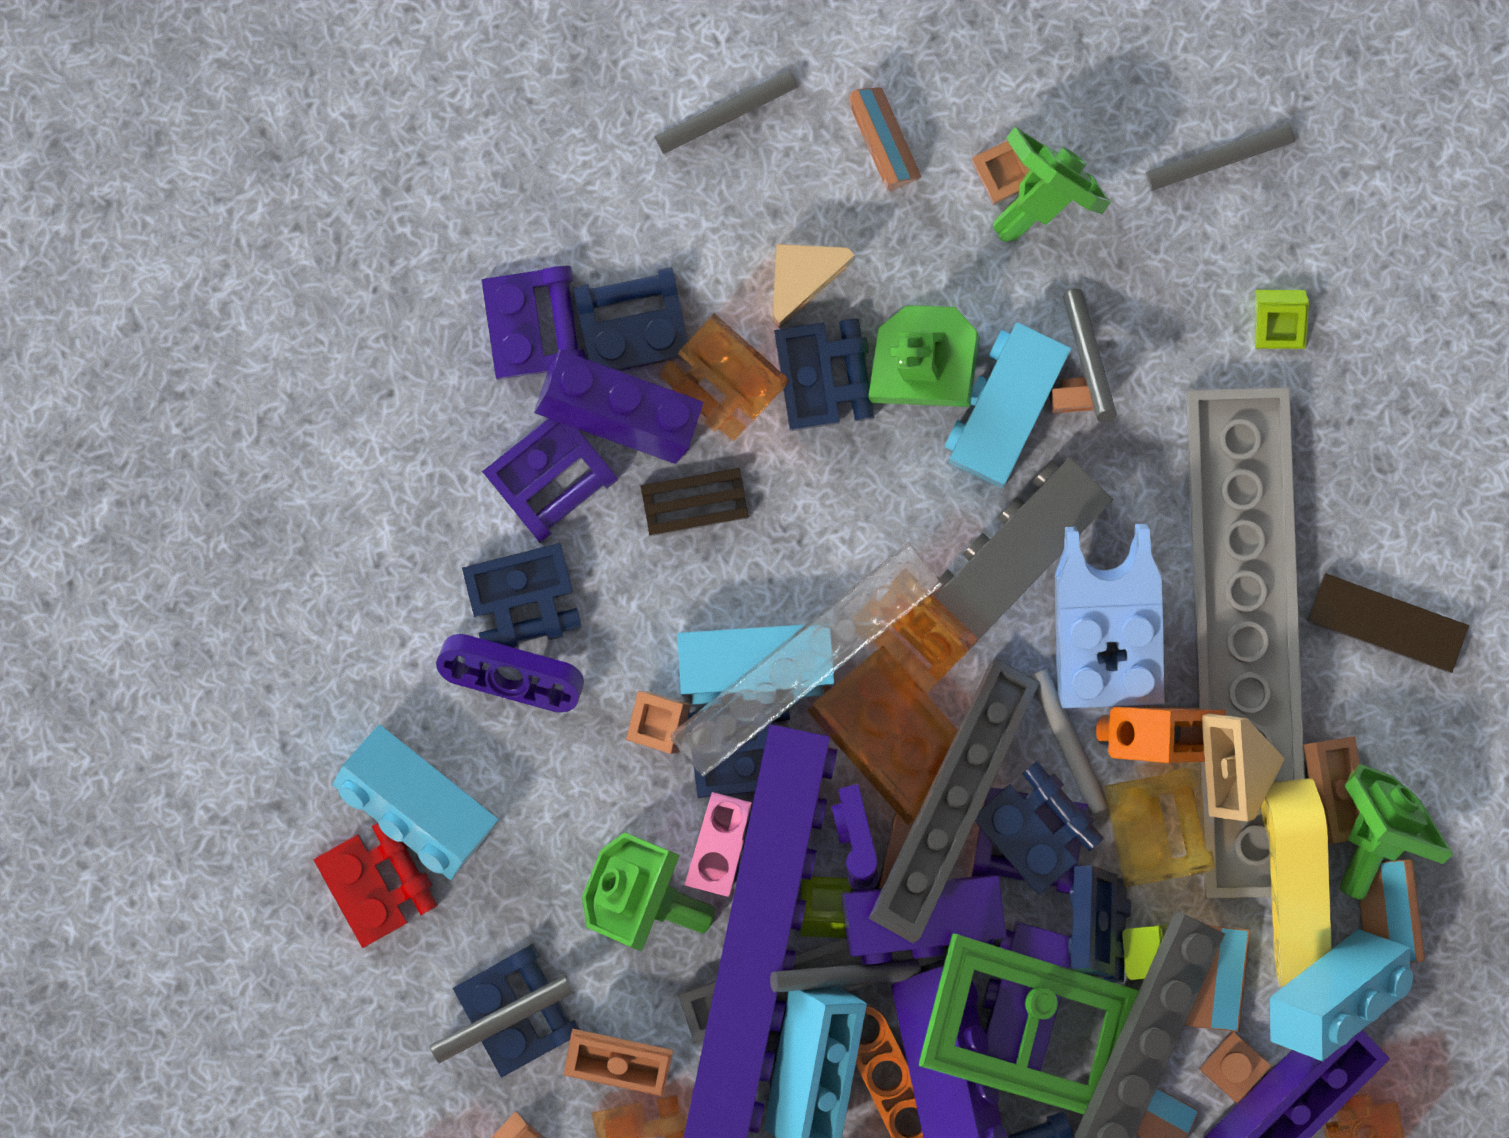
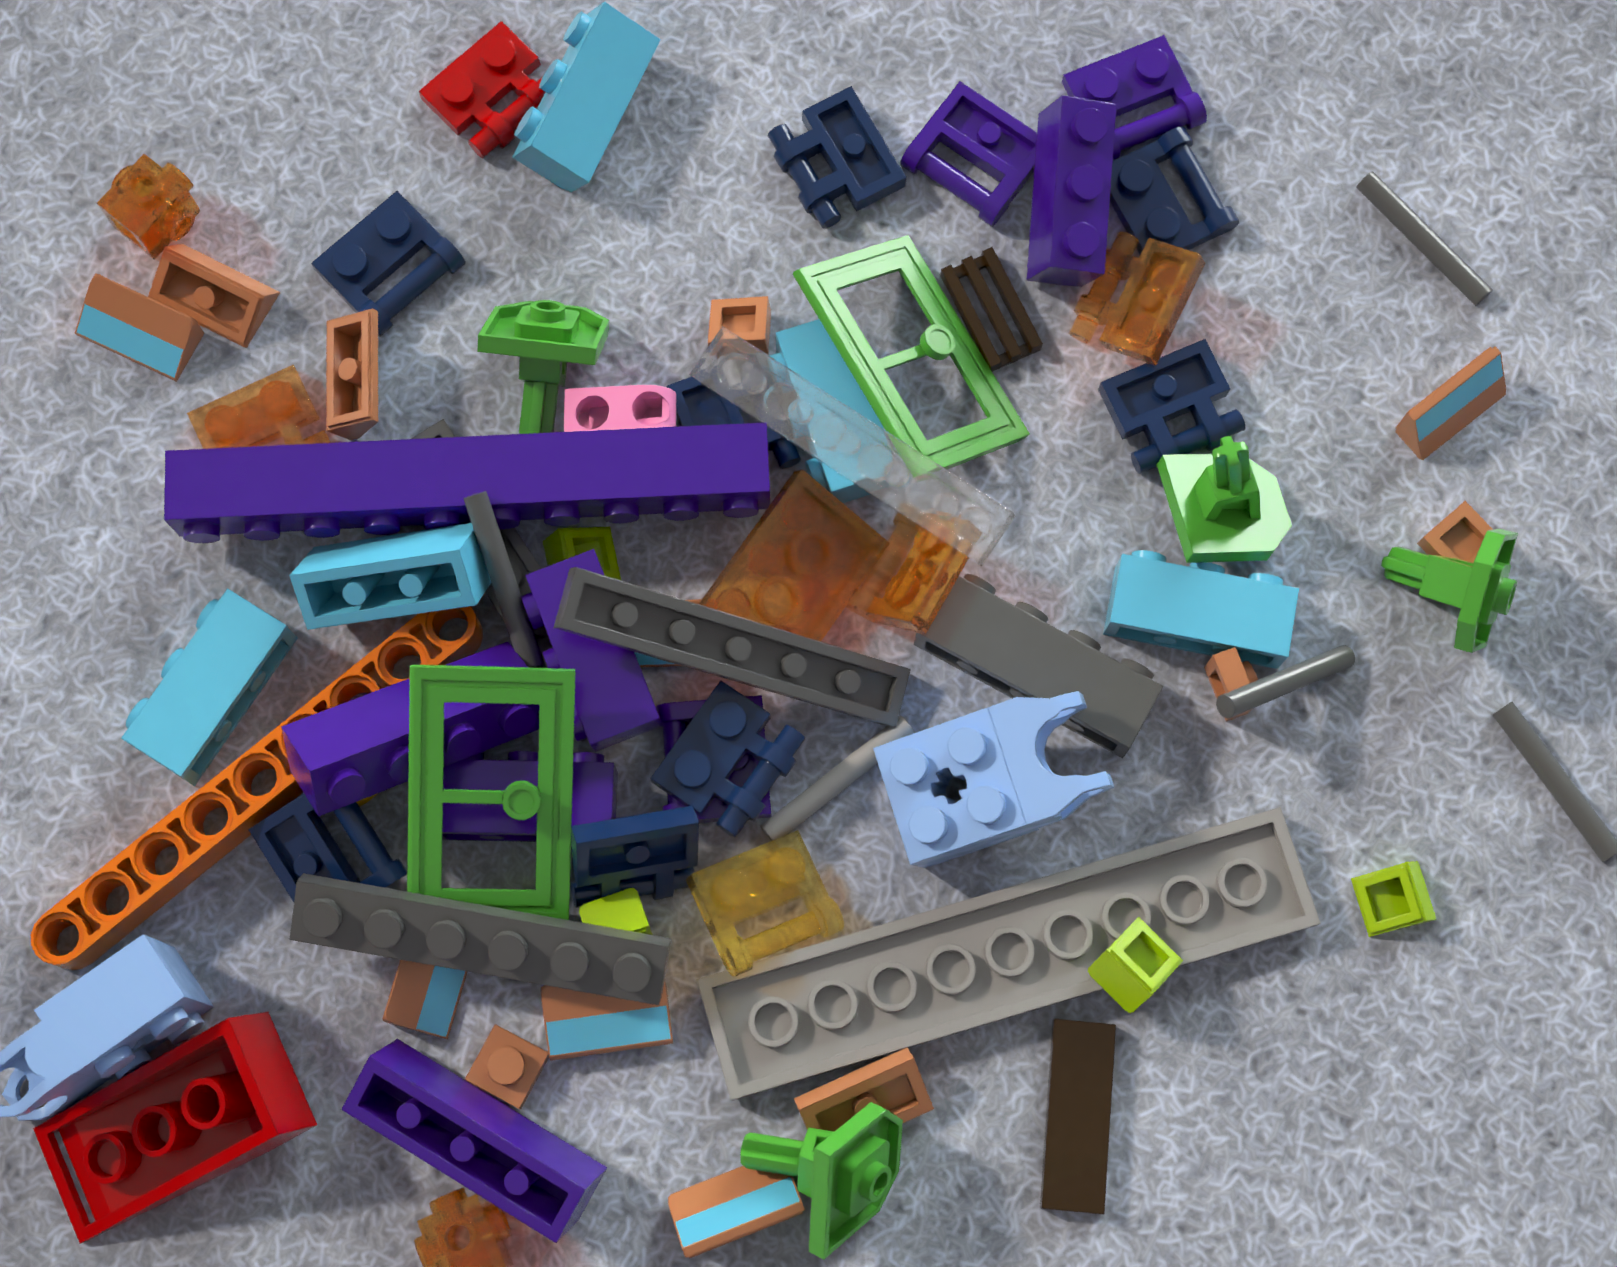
camera: 70 degrees right, 10 degrees down
(502, 1019) = (374, 244): dark grey bar -> none
(540, 695) = (752, 200): dark purple beam -> none
(718, 548) = (942, 338): none -> bright green door
(803, 274) = (1273, 354): tan slope -> none
(853, 828) = (671, 555): dark purple plate -> none
(1148, 733) = (871, 852): orange torso -> none
(1237, 767) = (860, 965): tan slope -> none
(1286, 545) = (1134, 966): none -> lime slope
(1298, 876) = (742, 1076): light yellow beam -> none
(1340, 994) = (617, 1157): medium azure brick -> none

